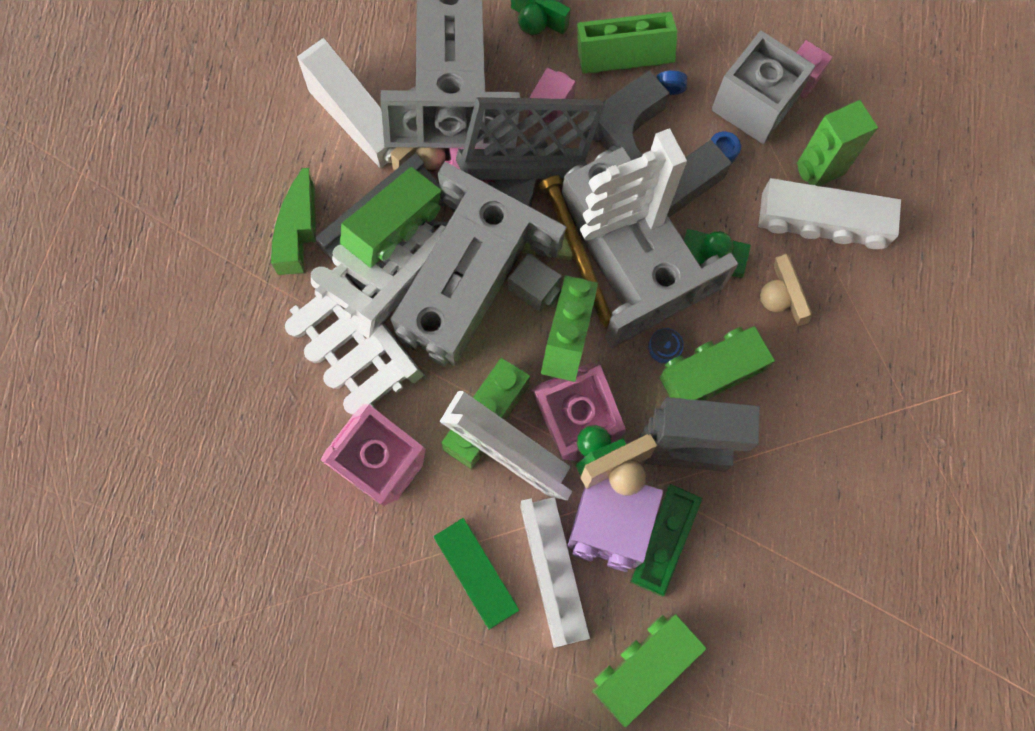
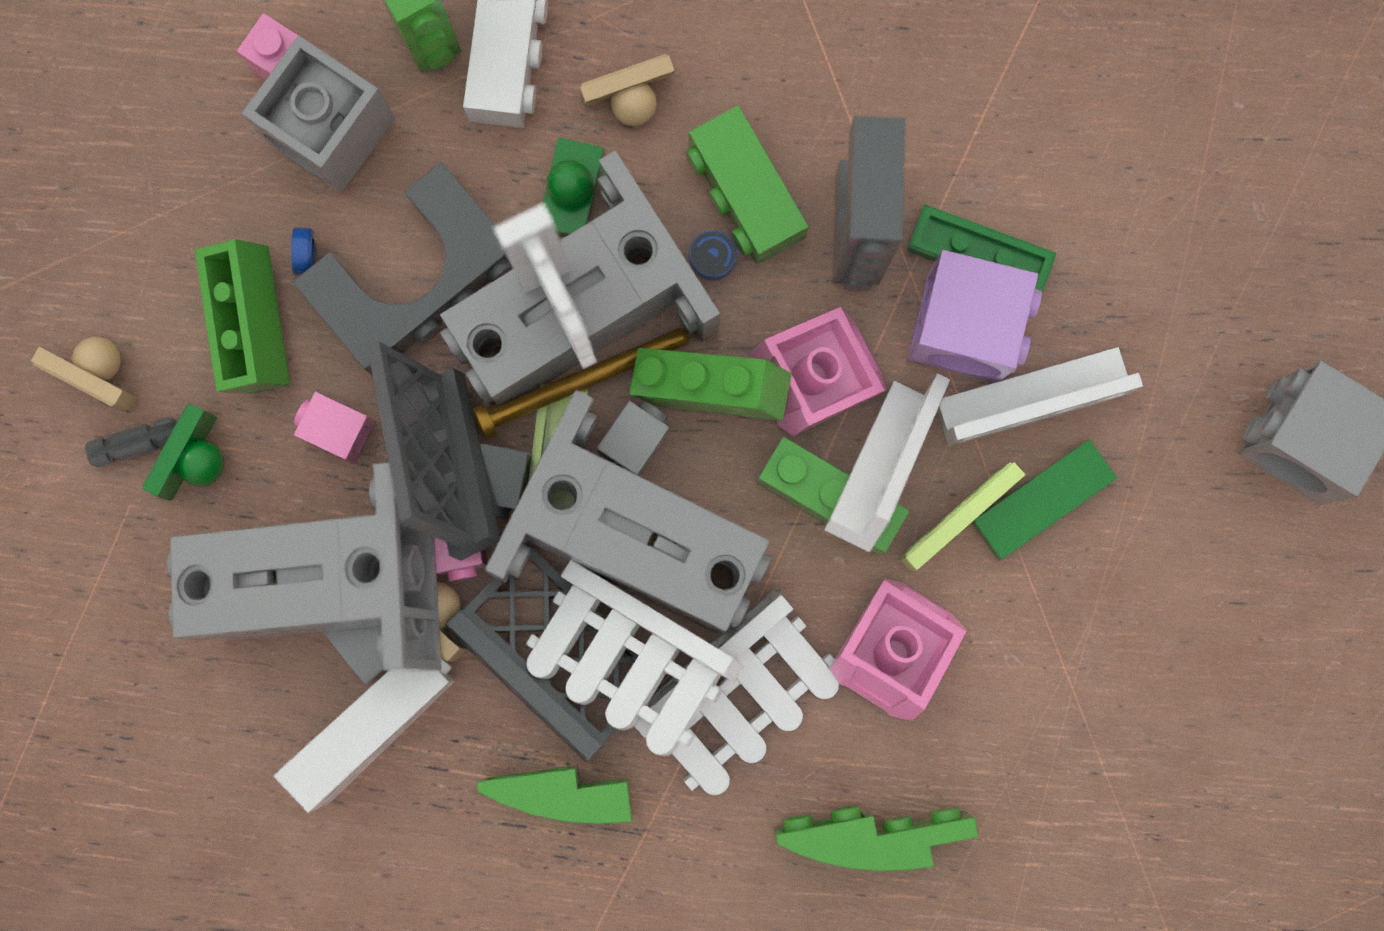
camera: 90 degrees left, 10 degrees up
(237, 418) = (854, 843): none -> bright green slope
(390, 217) = (561, 646): bright green brick -> none
(466, 507) = (961, 516): none -> yellowish green tile
(595, 443) = (881, 341): green tile -> none
(621, 467) = (923, 301): tan tile -> none
(647, 668) = (1152, 272): bright green brick -> none
(728, 144) = (399, 172): blue tile -> none

